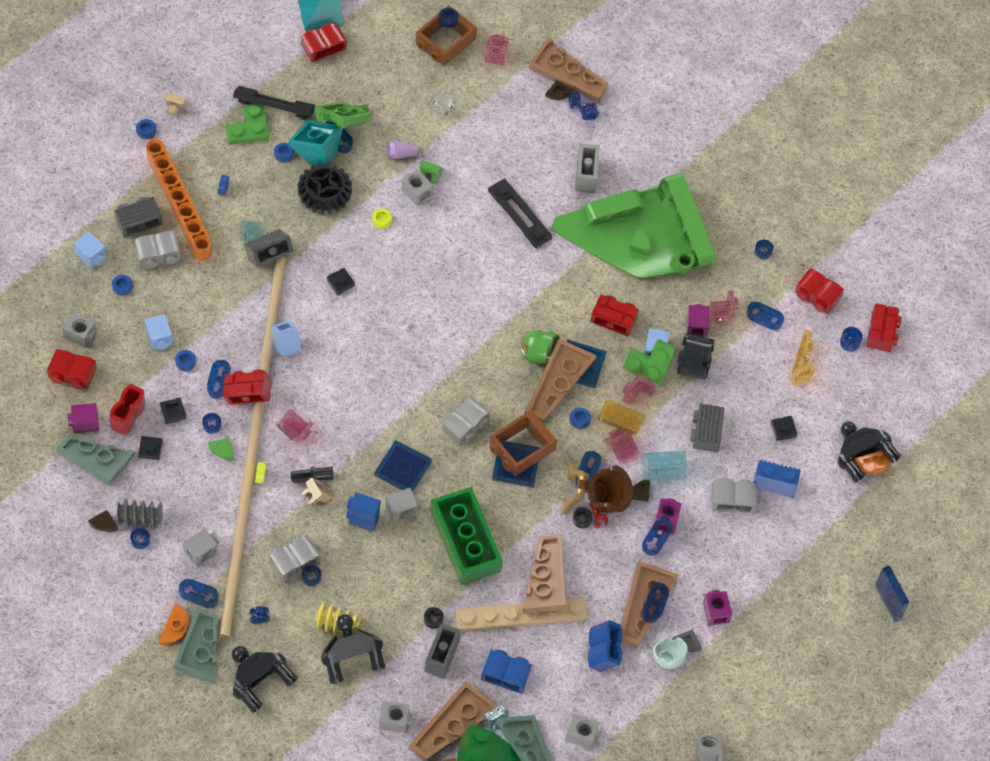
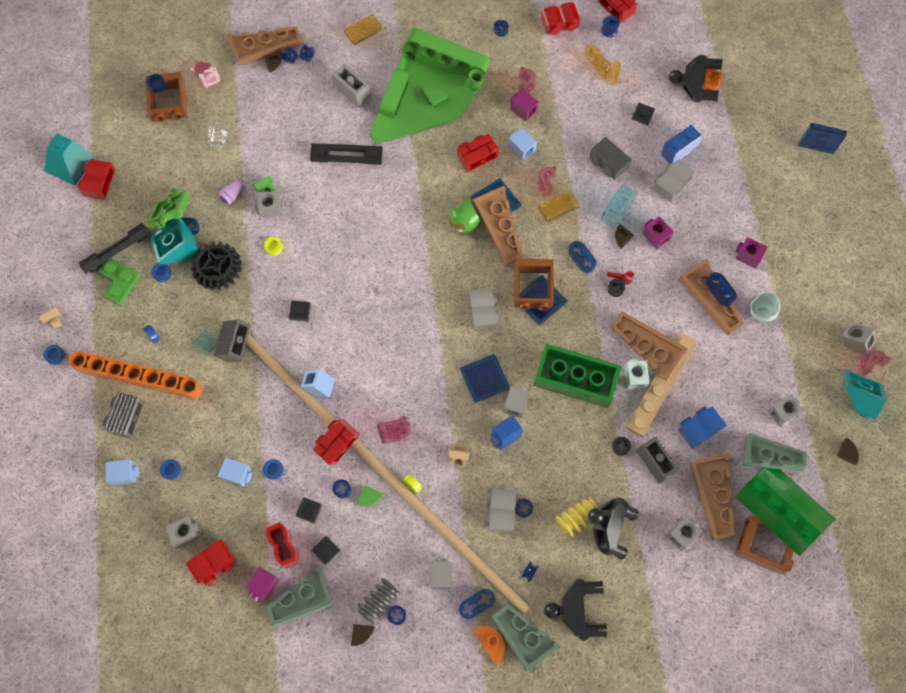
camera: 45 degrees left, 10 degrees up
(157, 249) = (164, 421): light grey brick -> none
(213, 378) = (305, 459): clear blue beam -> none
(324, 473) = (442, 447): black axle -> none
(493, 715) = (736, 461): clear light blue plate -> none
(506, 593) = (635, 382): none -> light aqua brick
(580, 418) = (537, 232): blue tile -> none
(605, 646) = (731, 346): blue brick -> none
(607, 491) = (612, 257): reddish brown helmet -> none
(622, 444) = (580, 220): clear pink bracket -> none
(651, 366) = (537, 158): bright green plate -> none
(655, 138) = (363, 29): none -> clear yellow plate
(661, 539) = (671, 249): clear blue beam -> none
(691, 641) = (758, 287): dark grey tile -> none
(695, 357) = (554, 125): black brick -> none
(765, 315) = (551, 63): clear blue beam -> none

